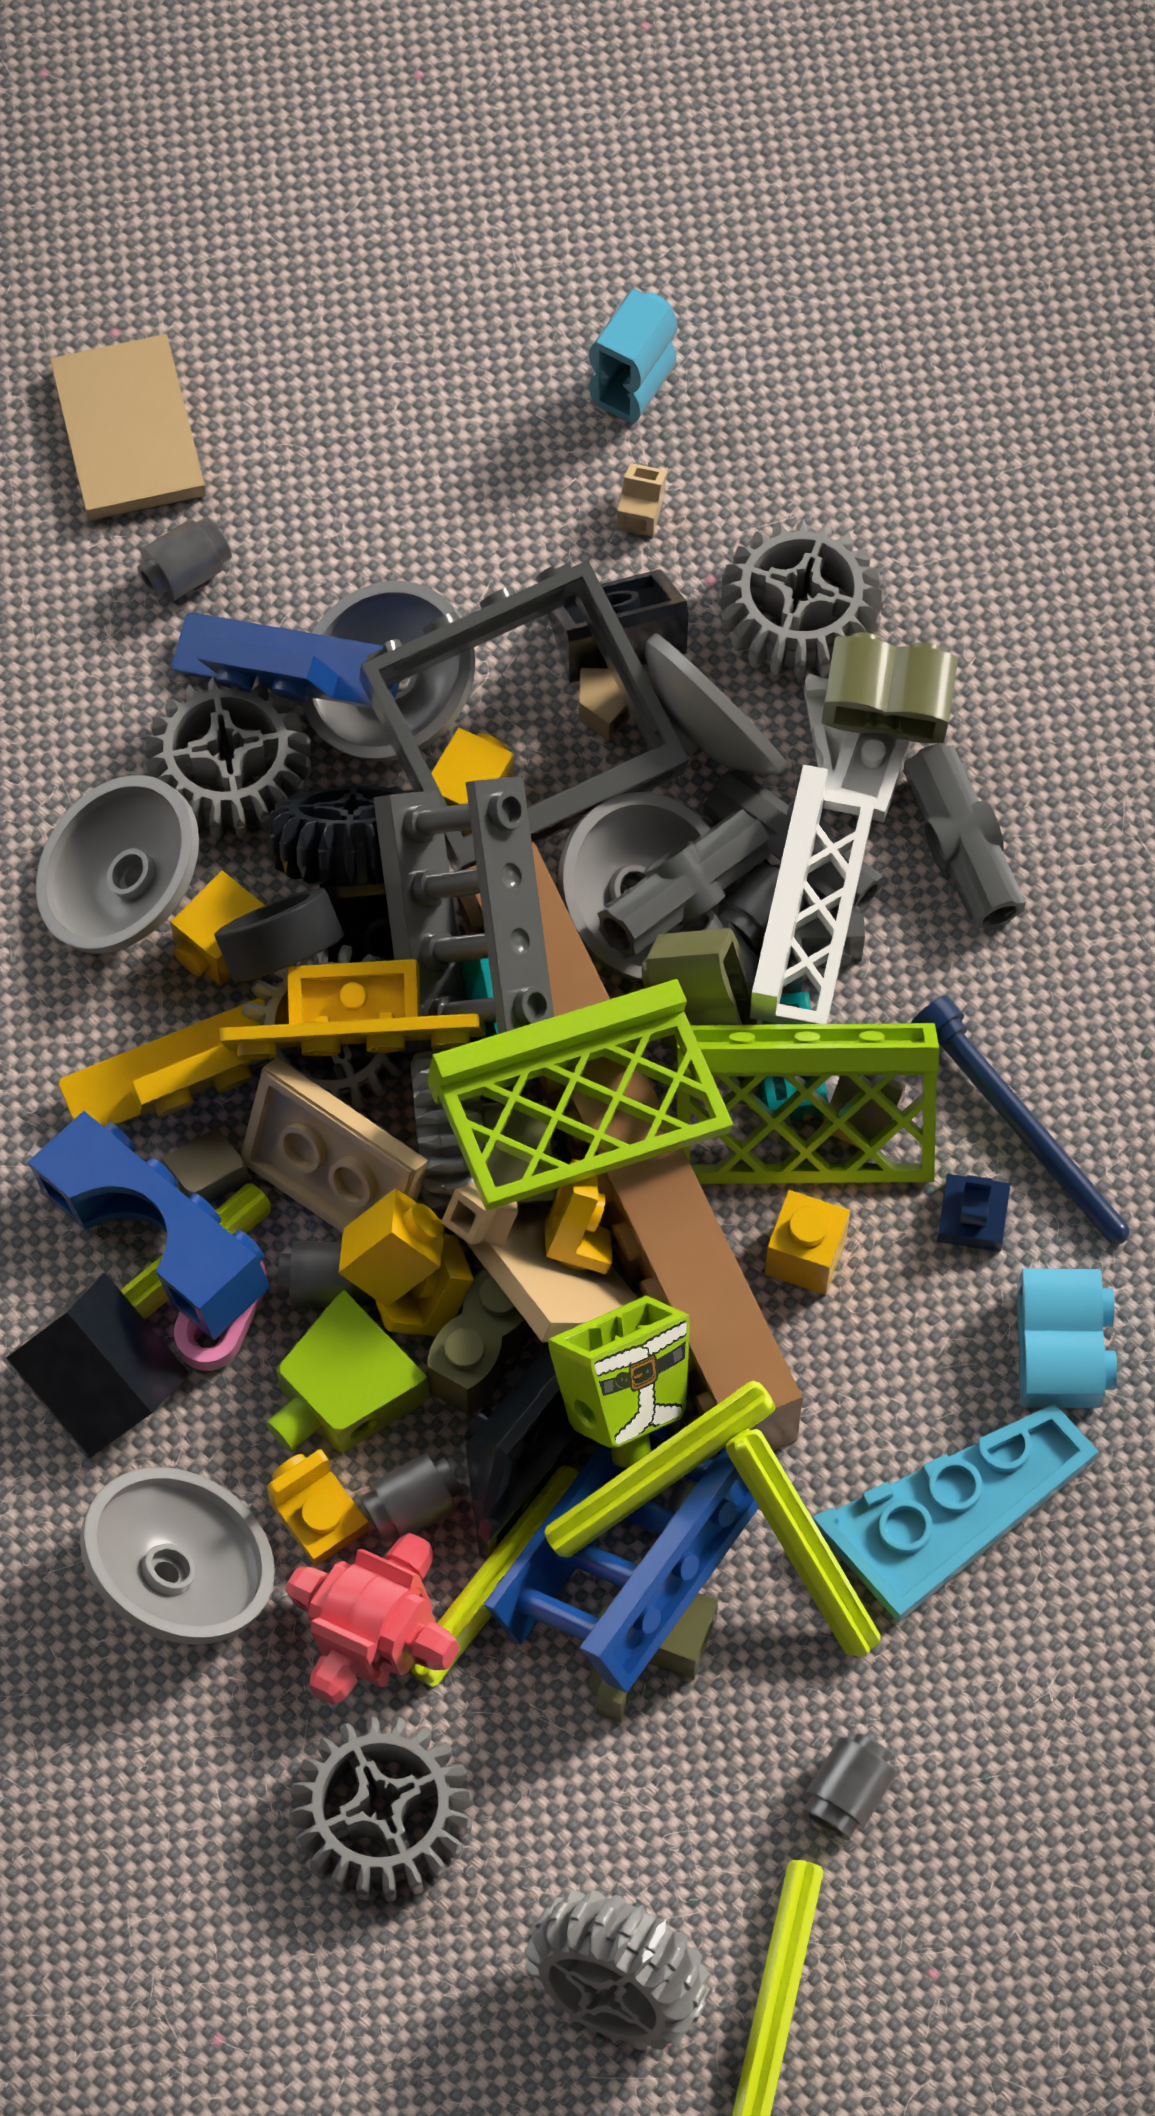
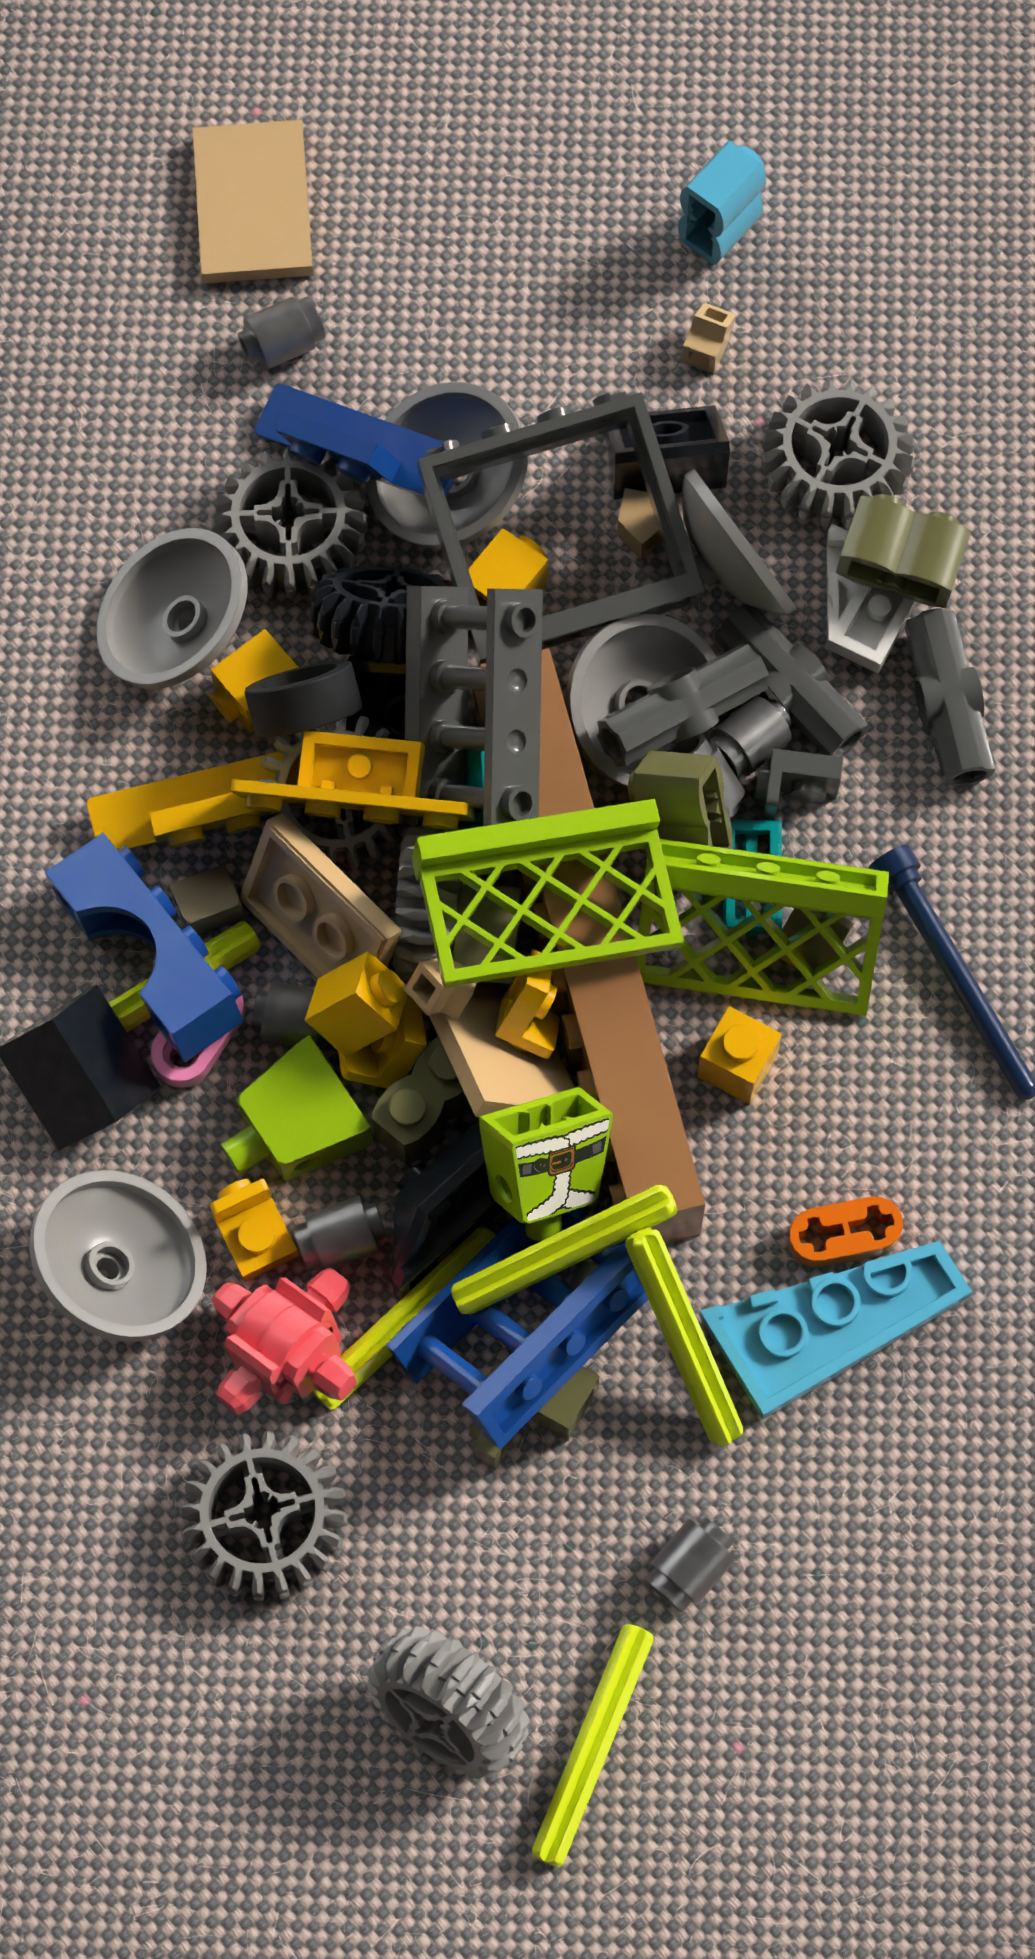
camera: 10 degrees right, 5 degrees up
(788, 896) = (774, 734): white fence -> none
(946, 1398) = (842, 1218): none -> orange beam
(973, 1212) = (897, 1050): dark blue tile -> none
(1063, 1338) = (958, 1181): medium azure brick -> none

